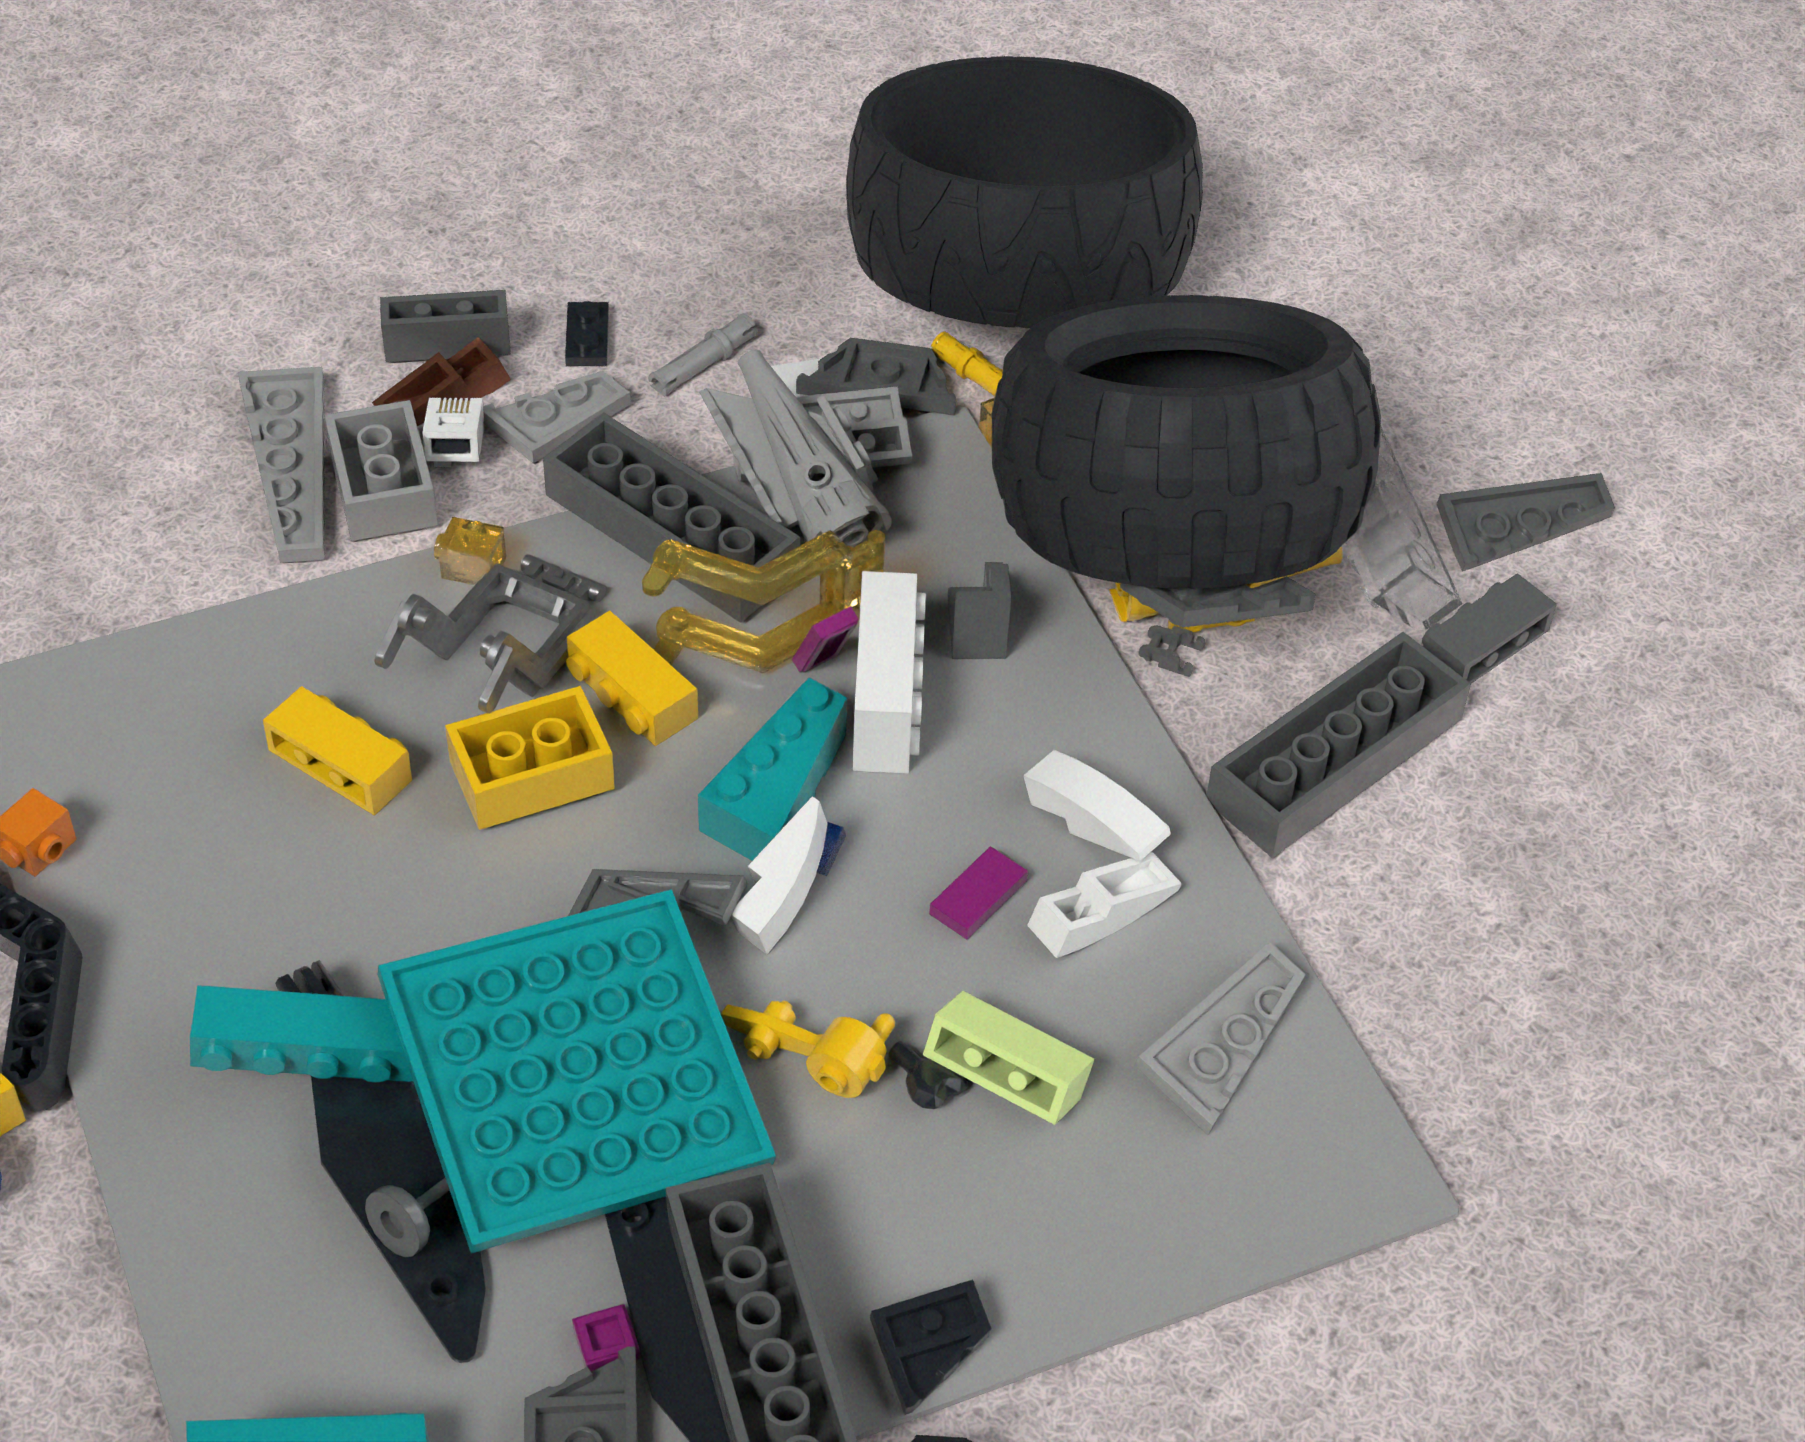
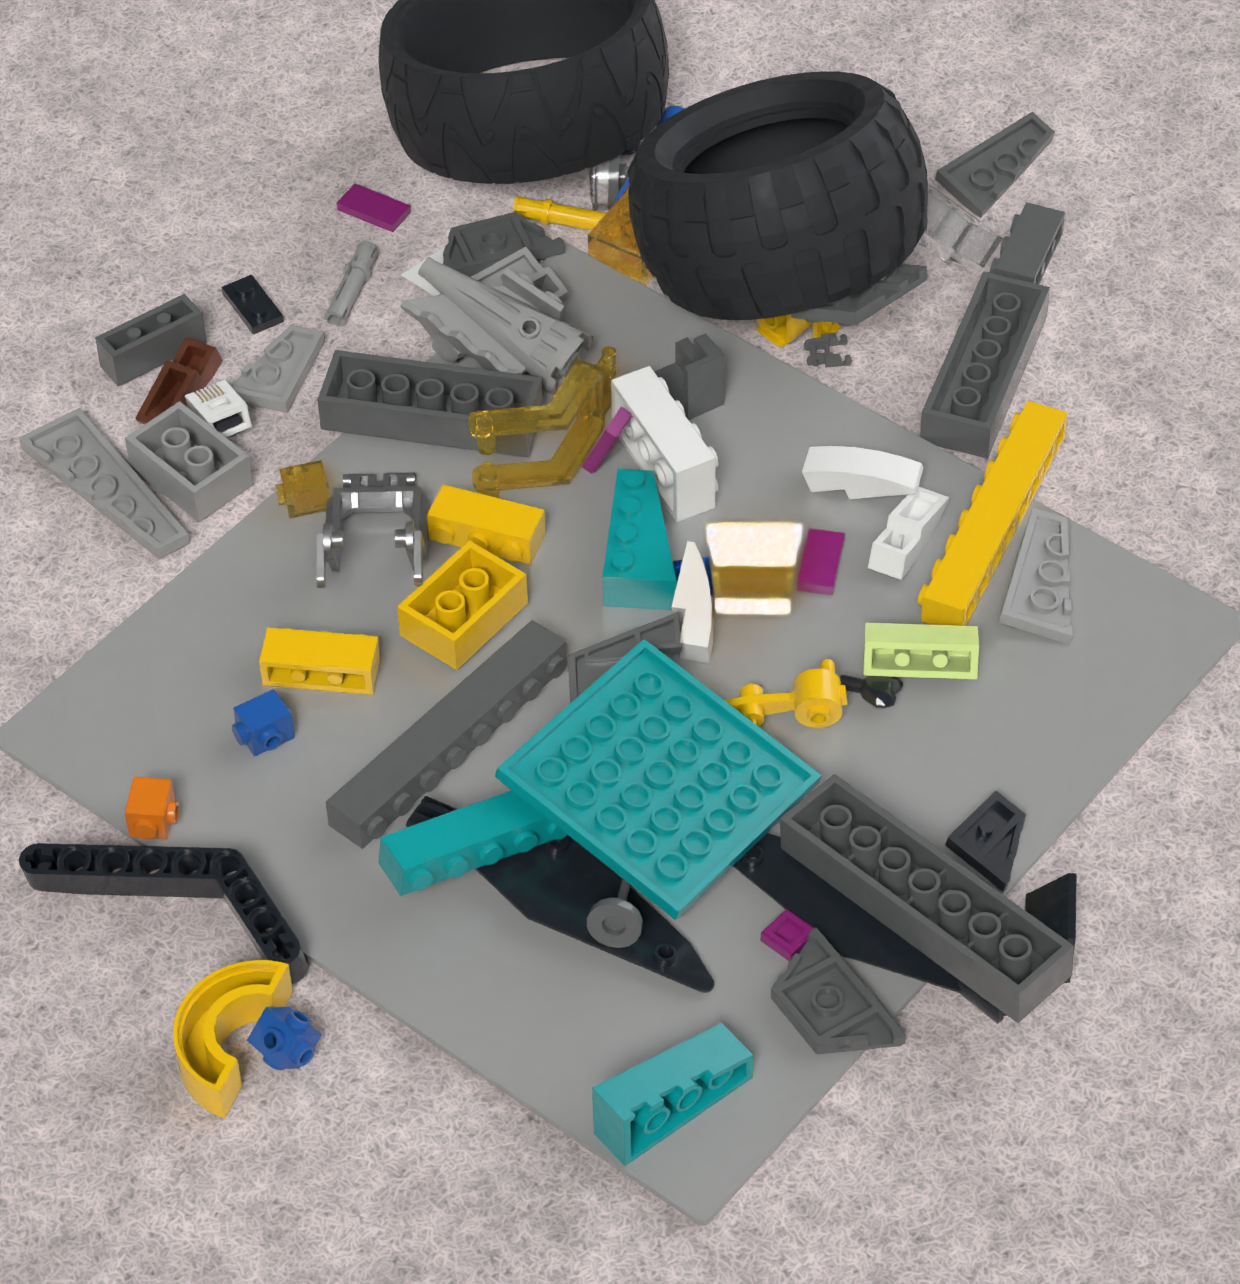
camera: 25 degrees left, 0 degrees up
(223, 792) = (263, 723): none -> blue brick
(403, 898) = (446, 734): none -> dark grey brick
(791, 284) = (373, 207): none -> magenta tile
(868, 856) = (753, 565): none -> clear yellow container
(1215, 932) = (993, 517): none -> yellow brick

